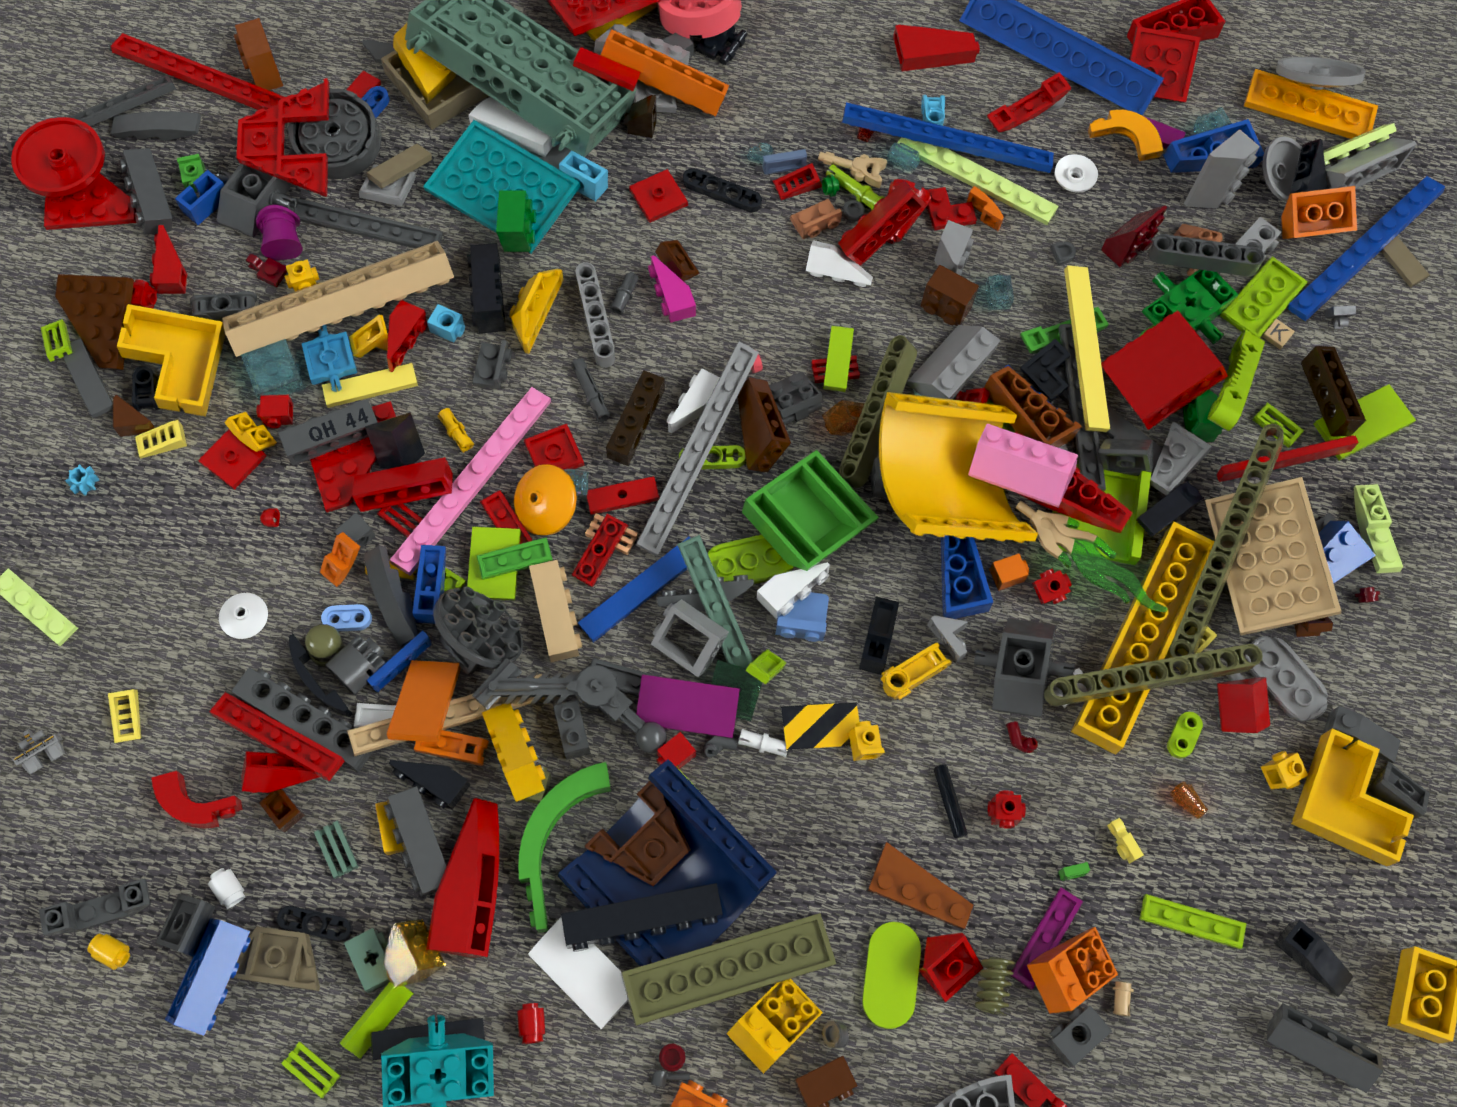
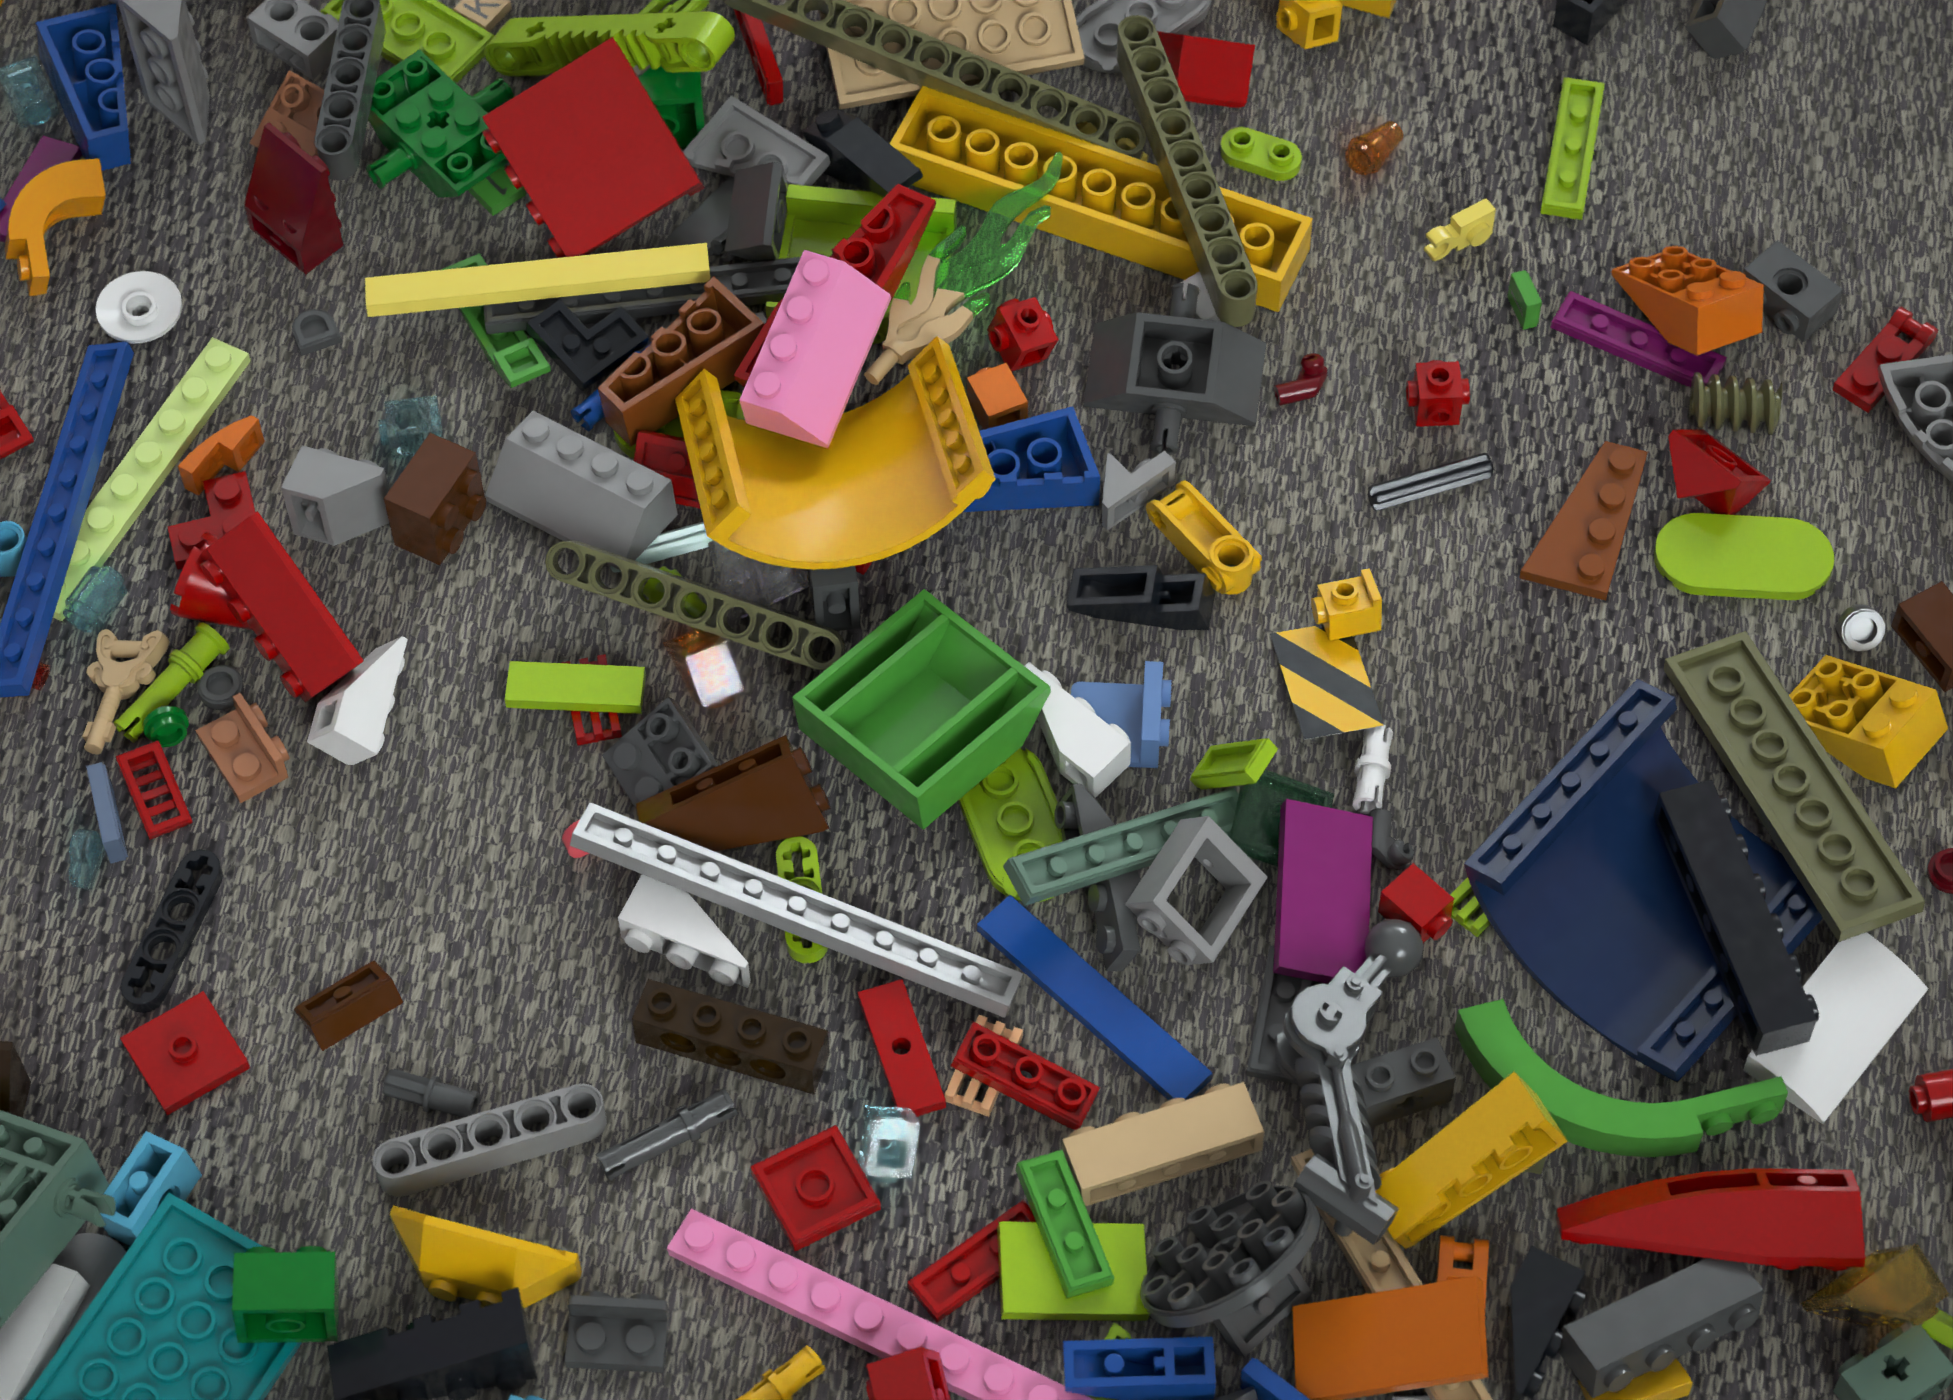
camera: 90 degrees left, 10 degrees down
(554, 500) = (902, 1173): light orange dish -> none
(653, 847) = (1605, 917): reddish brown wing -> none
(675, 293) = (433, 994): dark pink slope -> none
(1122, 998) = (1716, 237): tan pin -> none

